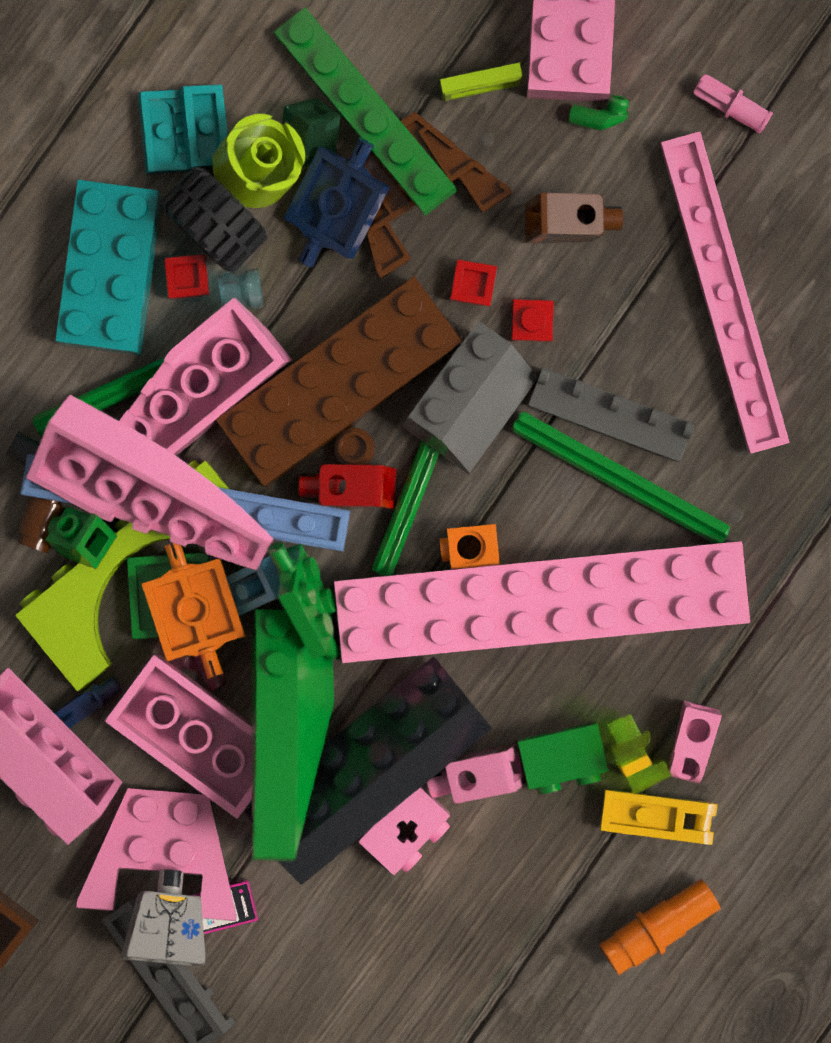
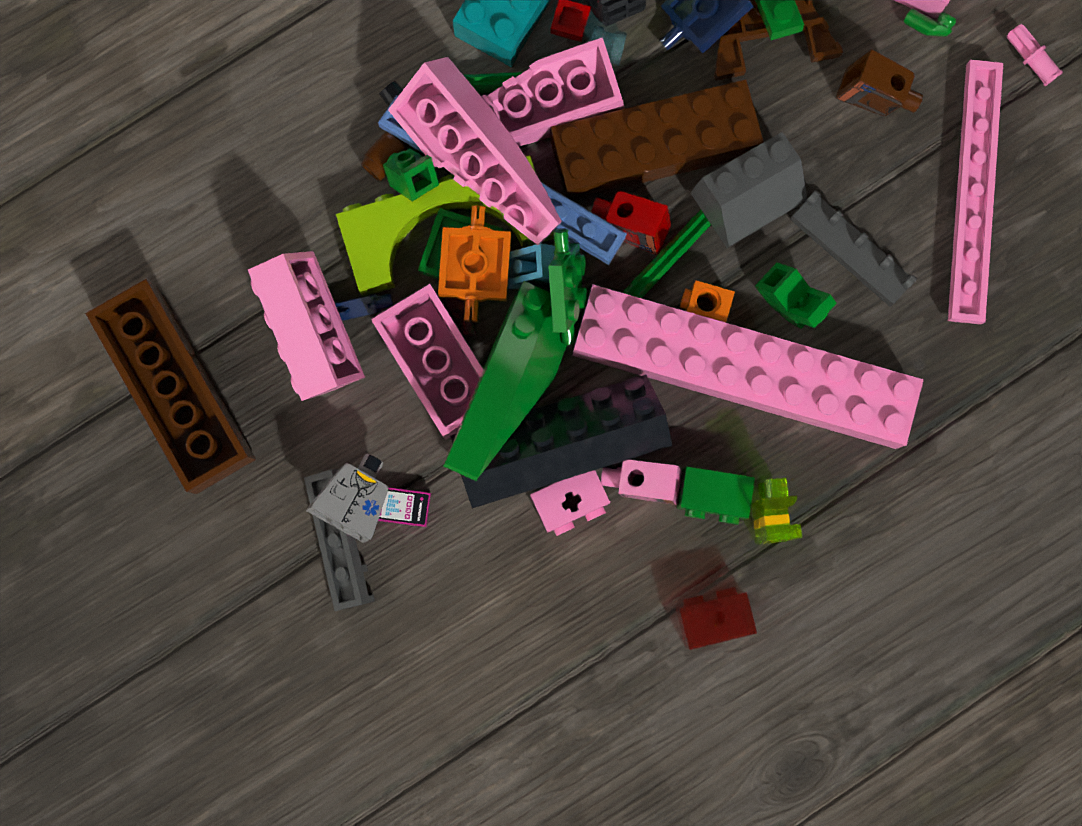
camera: 15 degrees right, 5 degrees down
(160, 833) = (378, 427): bright pink wing -> none
(354, 447) = (648, 190): reddish brown plate -> none
(473, 283) = (785, 109): red plate -> none
(532, 320) = (819, 155): red plate -> none
(565, 500) = (793, 297): none -> green brick
(615, 893) = (715, 619): none -> clear red brick
(620, 478) = (845, 303): green axle -> none
(656, 816) = (770, 571): yellow plate -> none
(659, 927) = (740, 659): orange piece -> none
(693, 741) = (823, 524): bright pink leg -> none

